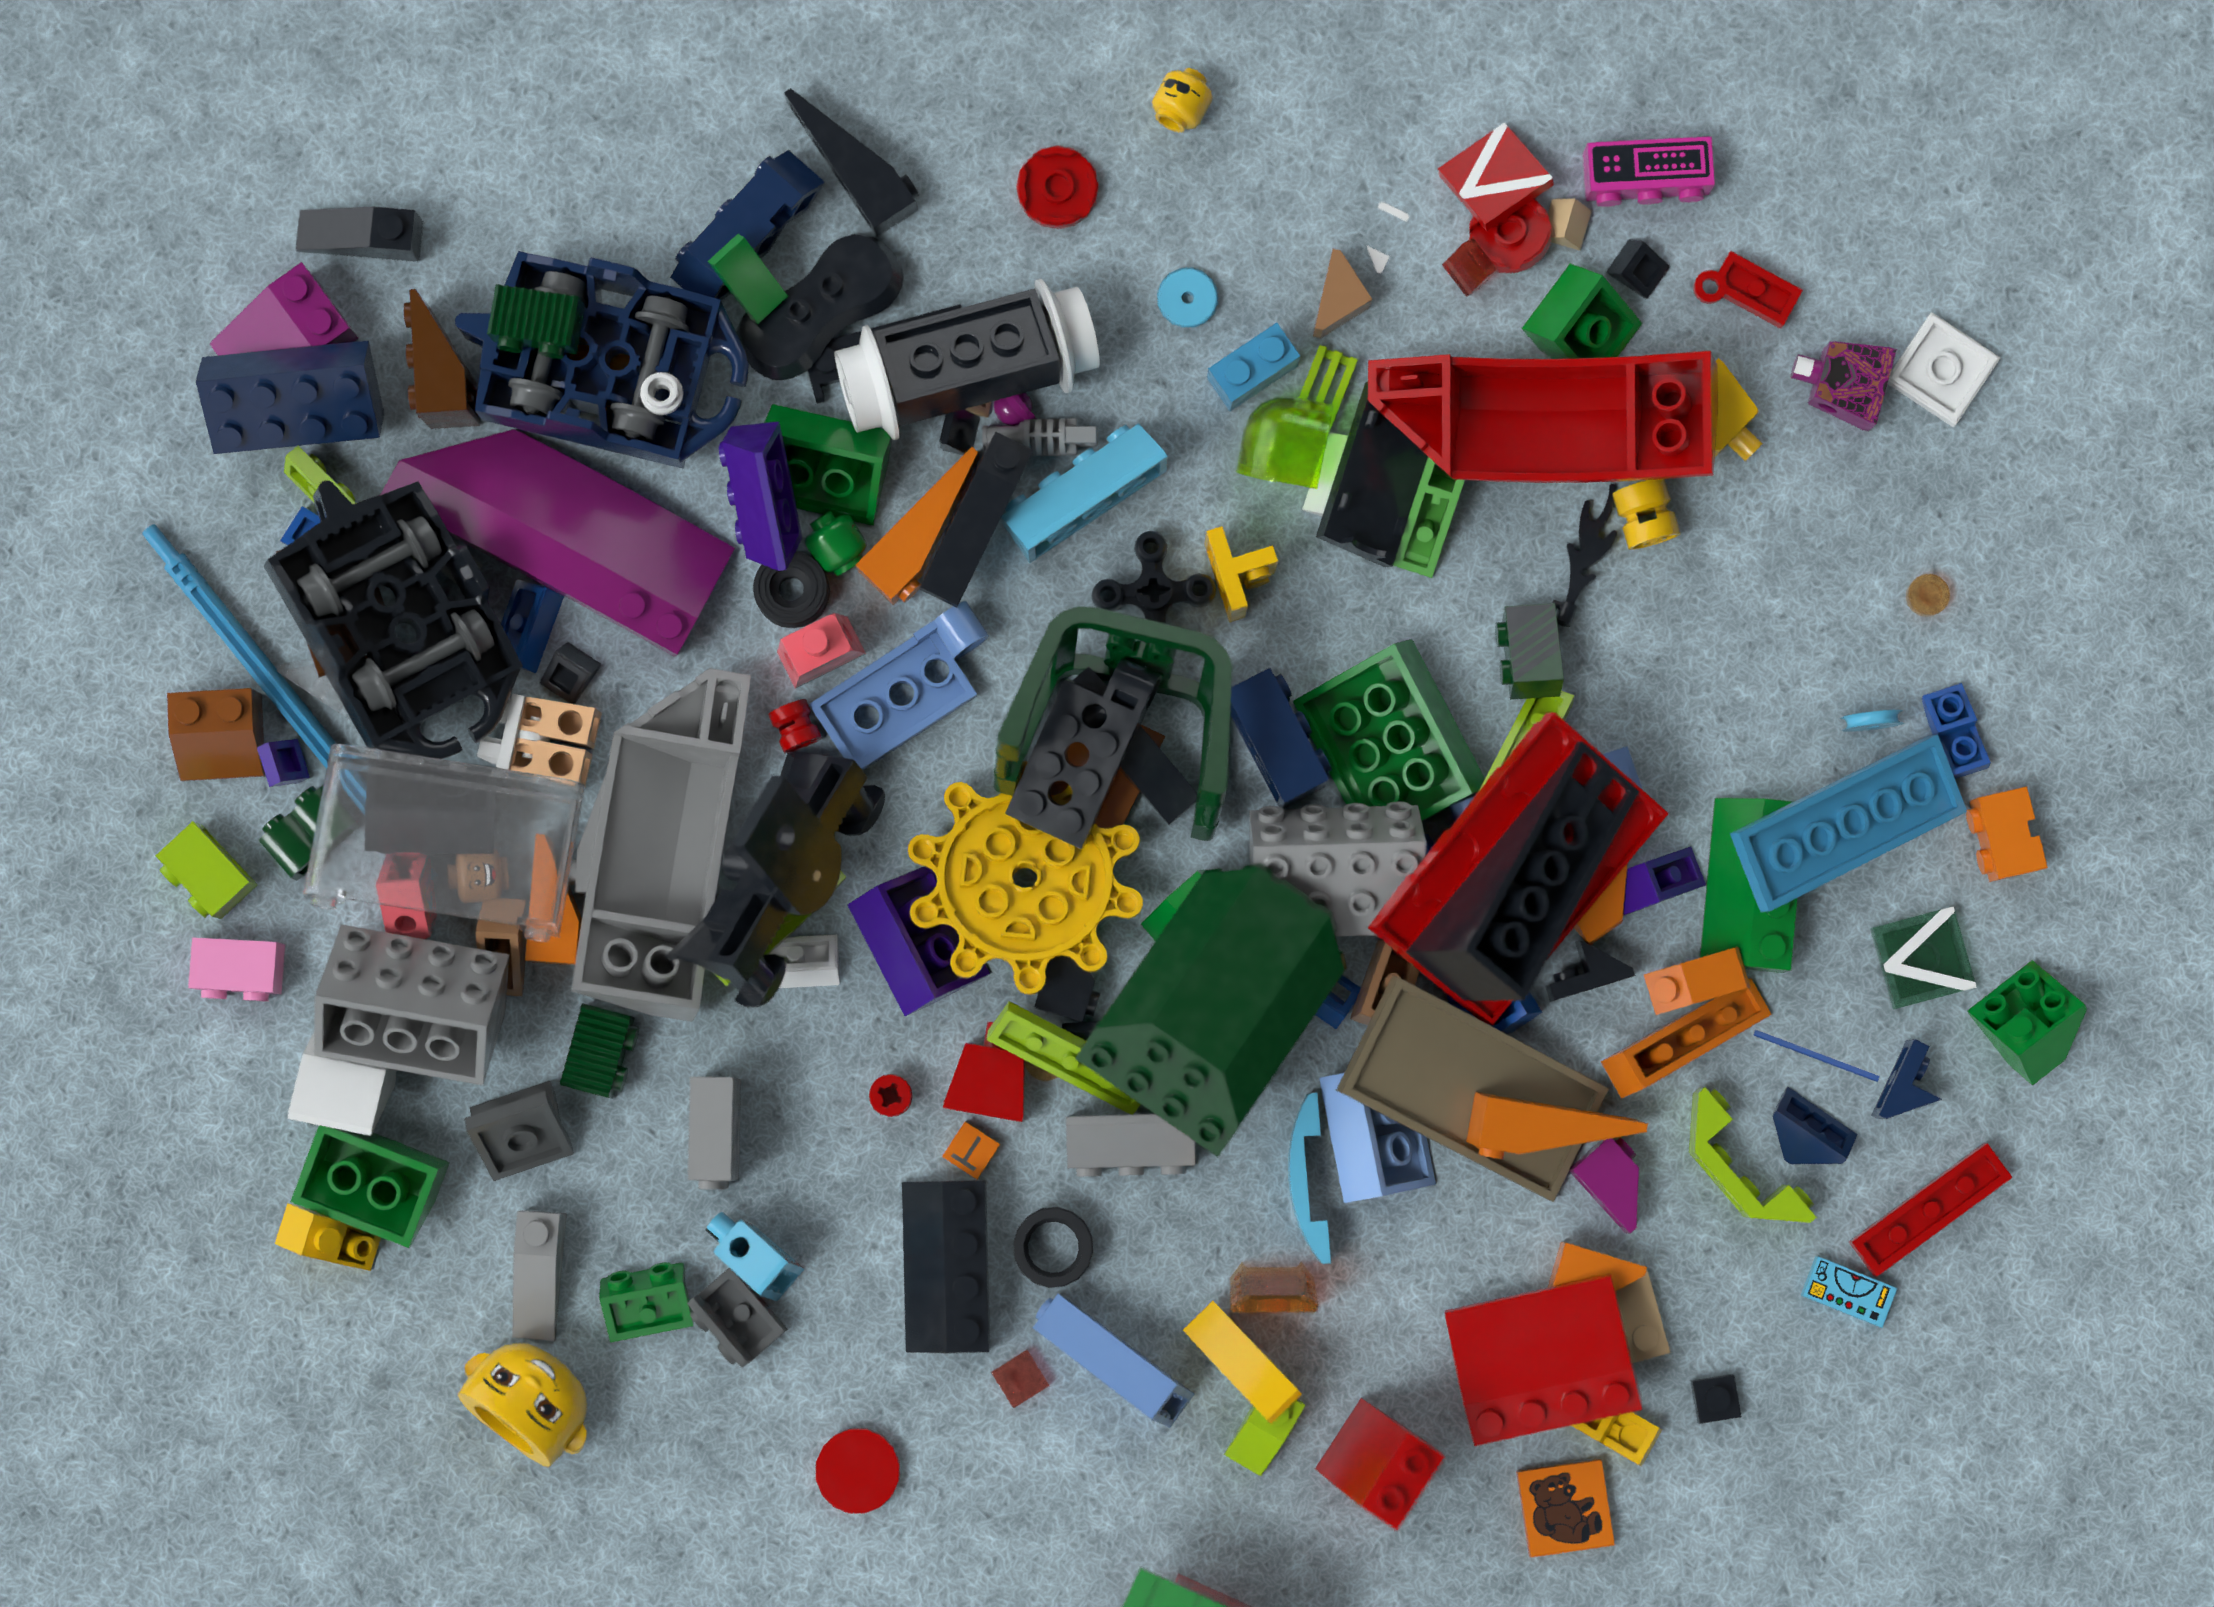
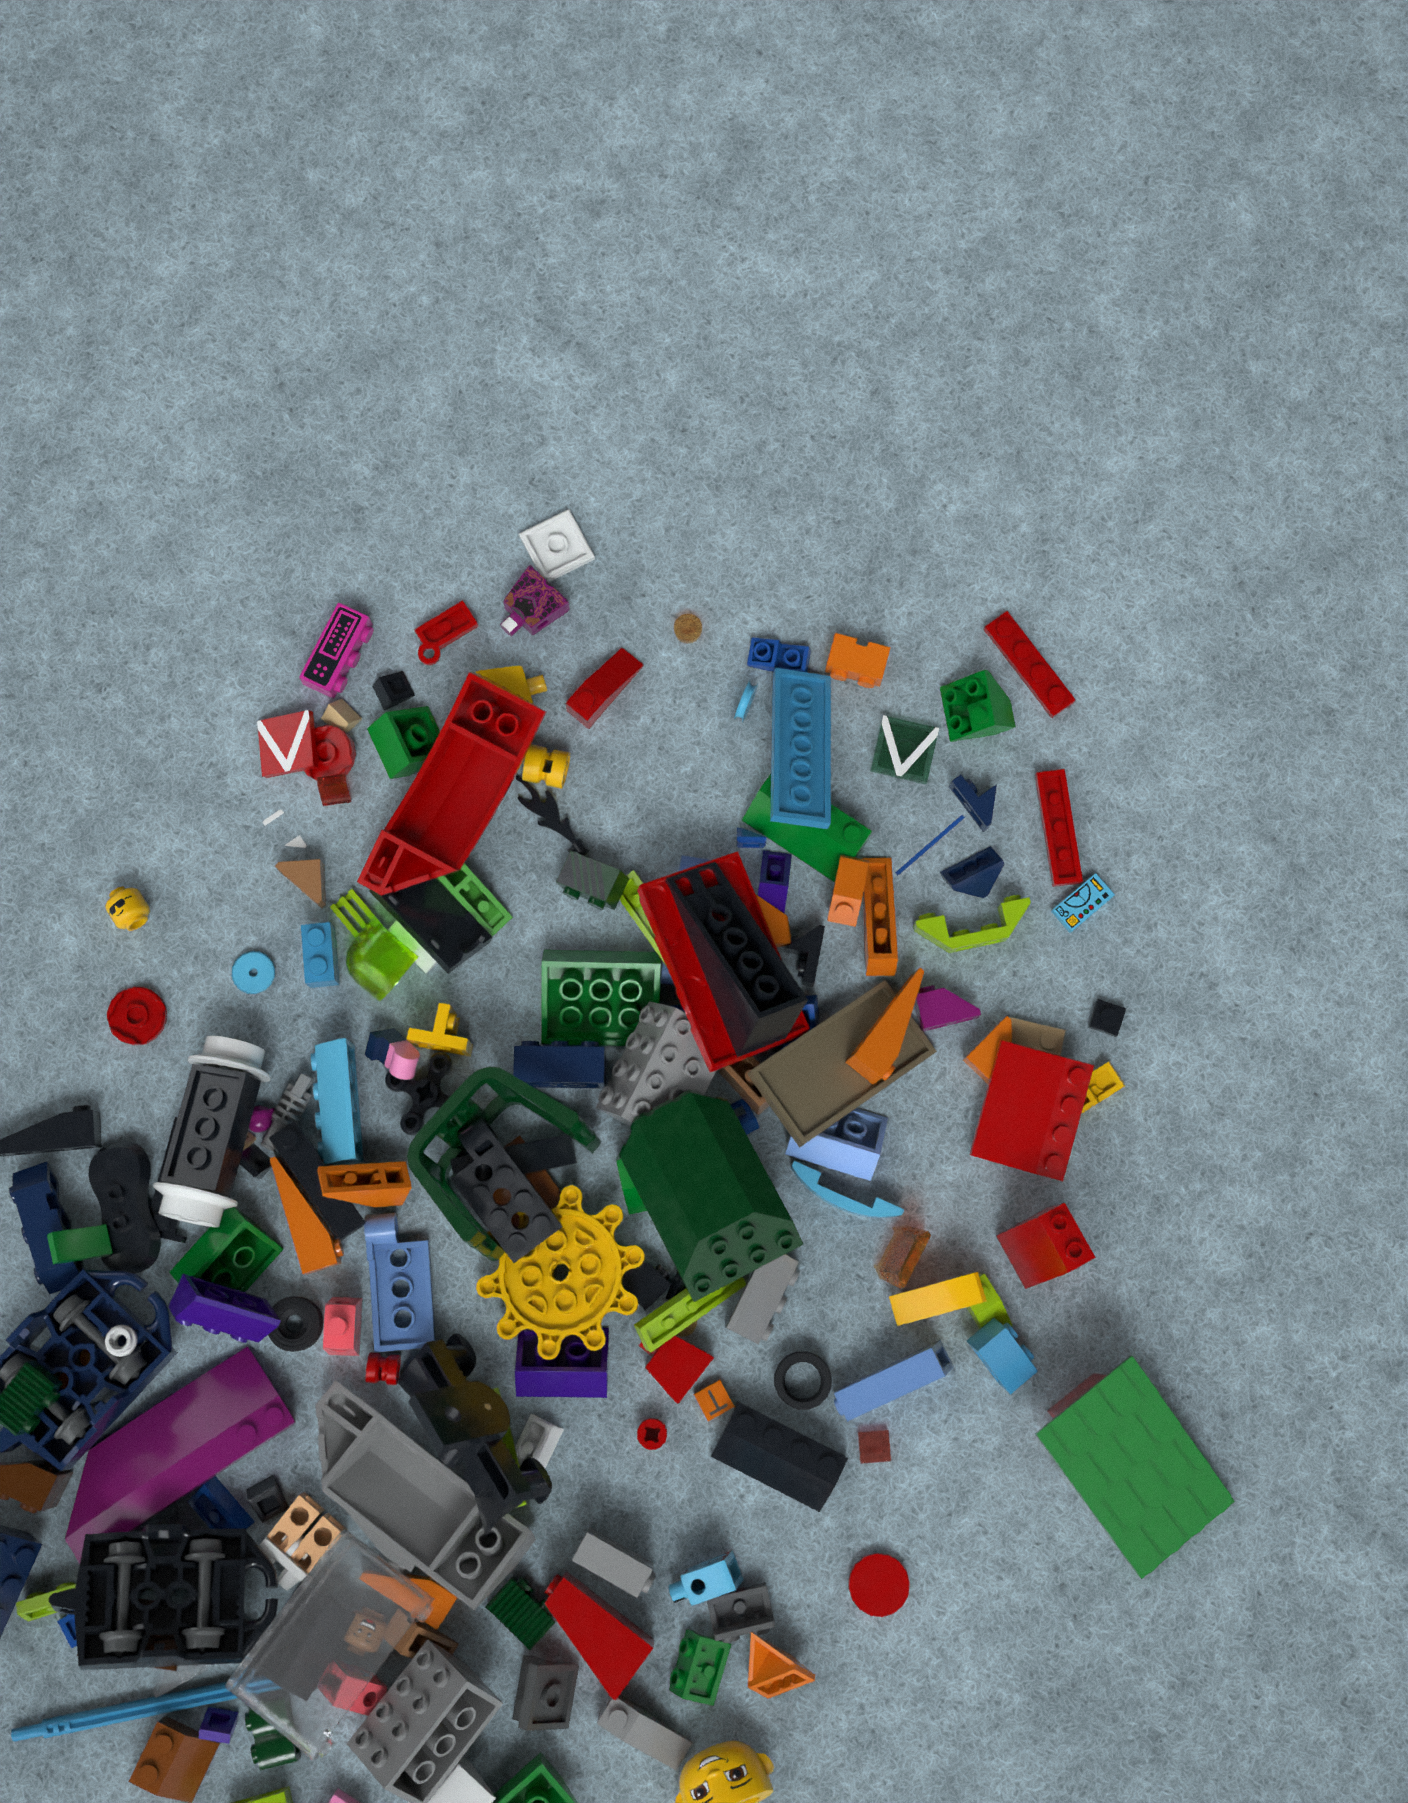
camera: 65 degrees left, 5 degrees down
(624, 1156) = (599, 1632): none -> red slope
(690, 1393) = (774, 1670): none -> orange slope
(835, 543) = (281, 1279): green head -> none
(1004, 581) = (366, 1183): none -> orange slope
(1182, 524) = (393, 1052): none -> leg
(1216, 1480) = (1002, 1355): none -> dark azure brick
(1565, 1508) = (1127, 1146): tile -> none
(1695, 821) = (749, 839): none -> blue slope
(1789, 529) = (603, 687): none -> red slope
(2128, 1060) = (1029, 664): none -> red plate

